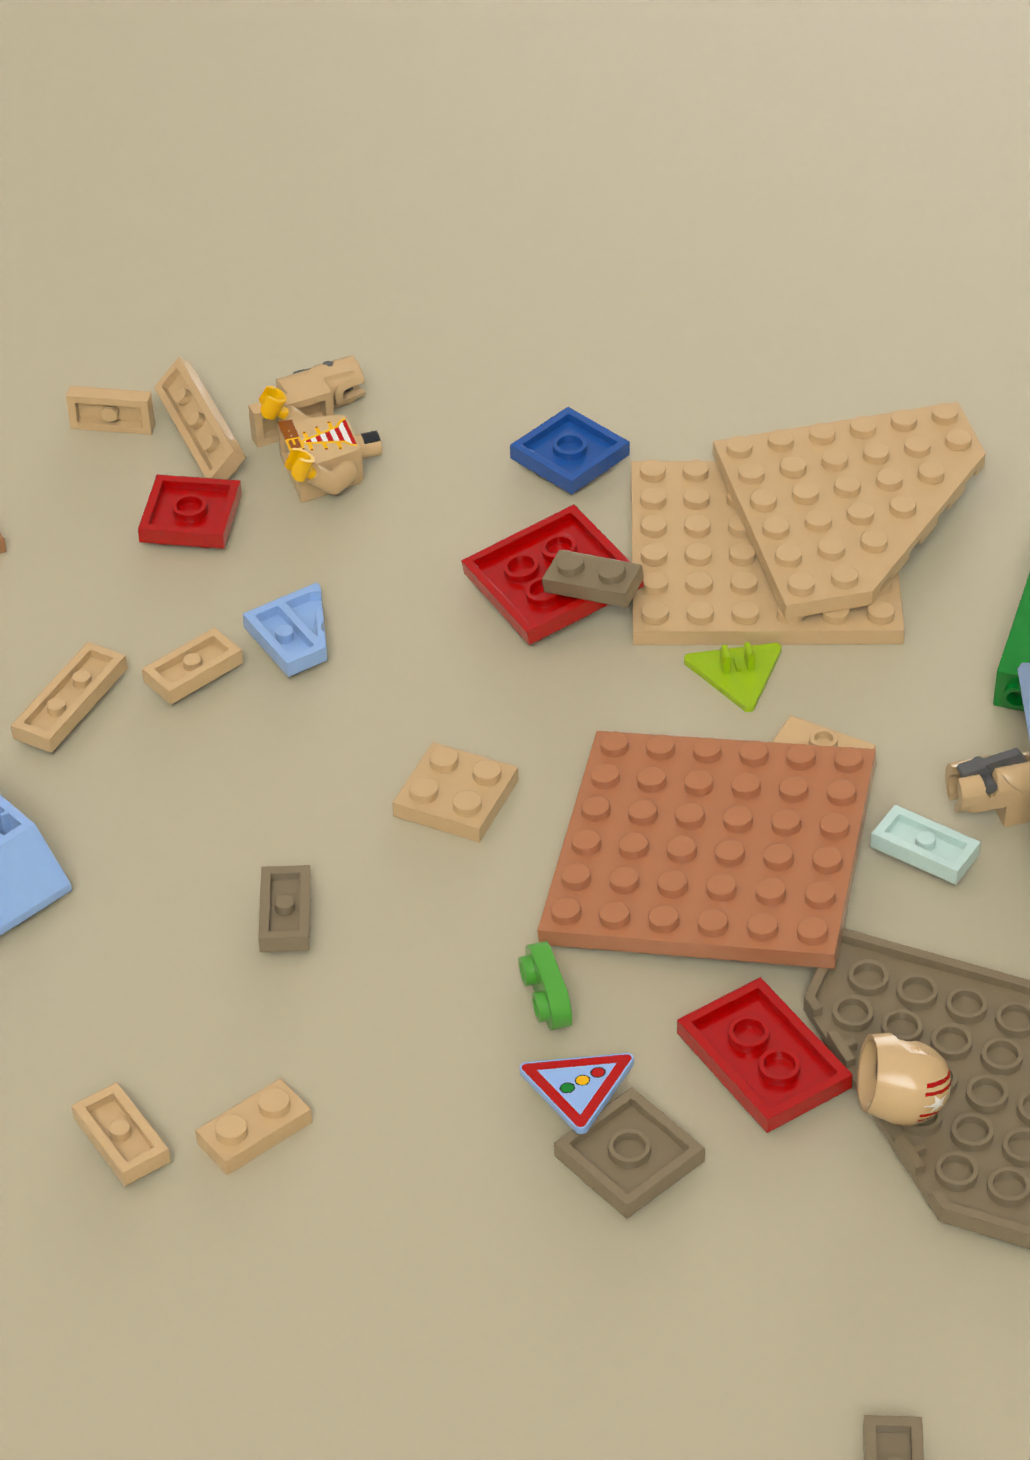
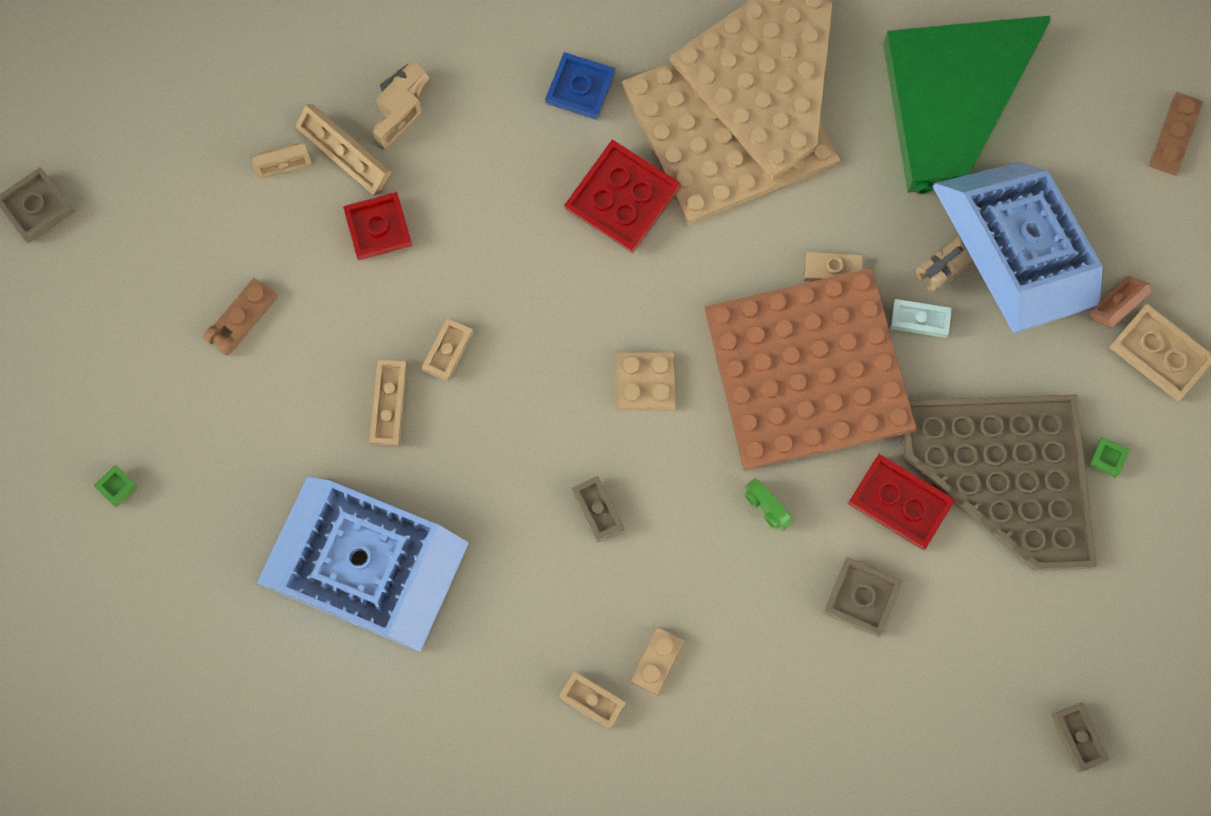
camera: 25 degrees left, 30 degrees up
(291, 629) = (490, 298): light blue wing -> none
(318, 451) = (431, 146): torso -> none
(578, 1085) = (818, 567): piece -> none
(593, 578) = (655, 198): dark tan plate -> none
(737, 671) = (757, 224): lime piece -> none
(910, 1080) = (999, 501): tan helmet -> none

